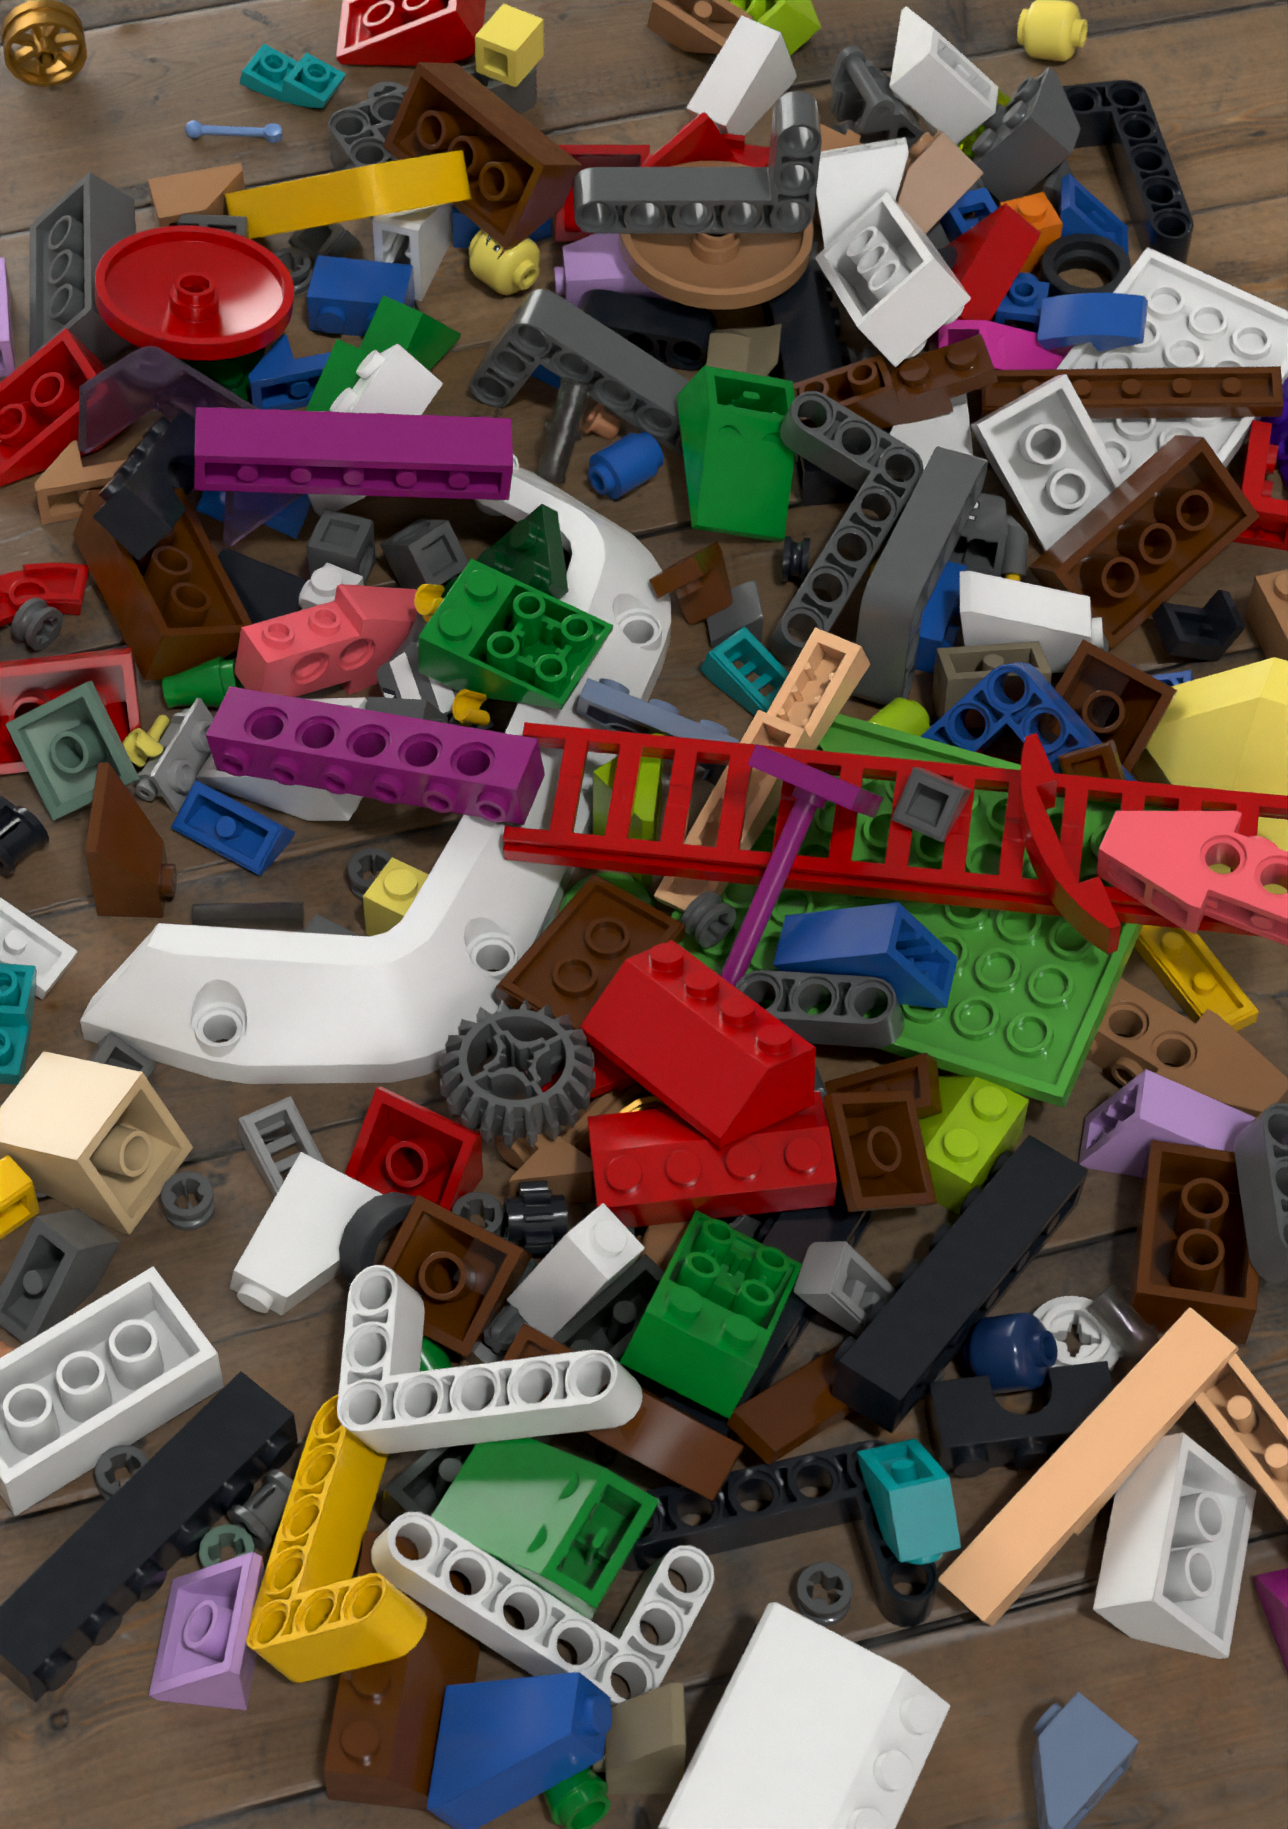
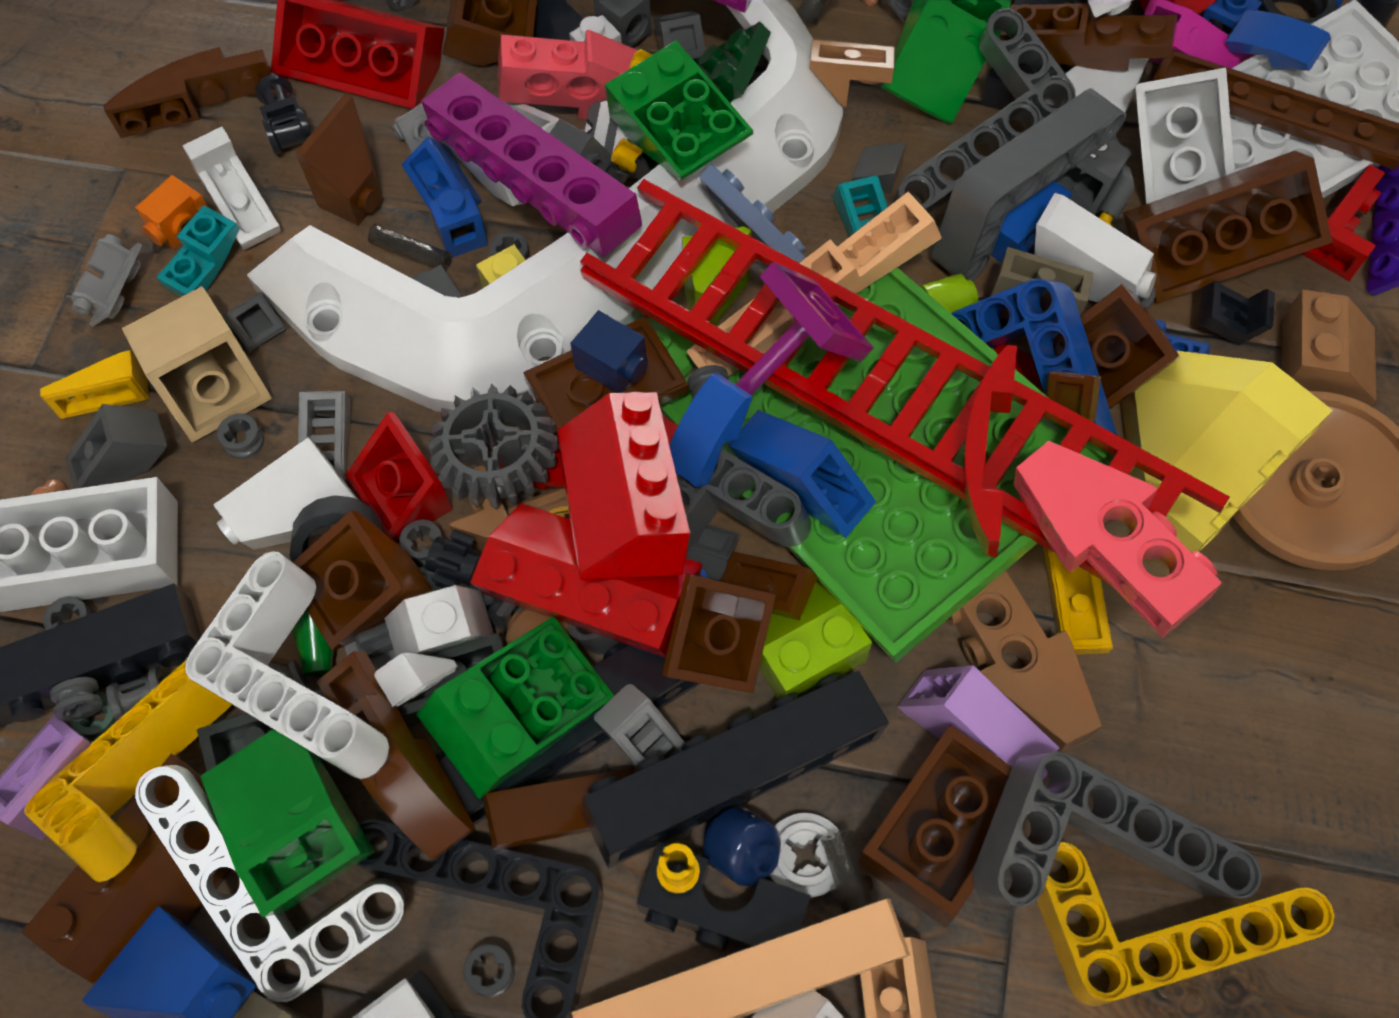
camera: 30 degrees right, 10 degrees up
(65, 744) = (358, 69): sand green slope -> none
(141, 745) = (410, 98): light yellow hand -> none
(205, 681) = (479, 69): green cone -> none
(211, 1534) = (76, 699): none -> dark grey bush
(290, 852) = (454, 211): none -> blue brick
(591, 922) = (609, 352): none -> dark blue brick
(598, 1318) = (412, 675): none -> white slope
(625, 464) = (864, 24): blue brick -> none
(645, 514) = (841, 61): none -> medium nougat slope
(697, 583) = (862, 127): reddish brown slope -> none
(754, 943) = (708, 422): none -> blue slope
(795, 559) = (946, 136): black bush -> none
(911, 1501) = (572, 942): teal slope -> none
(931, 803) = (910, 368): dark grey slope -> none
(970, 1389) = (681, 881): none -> yellow pin

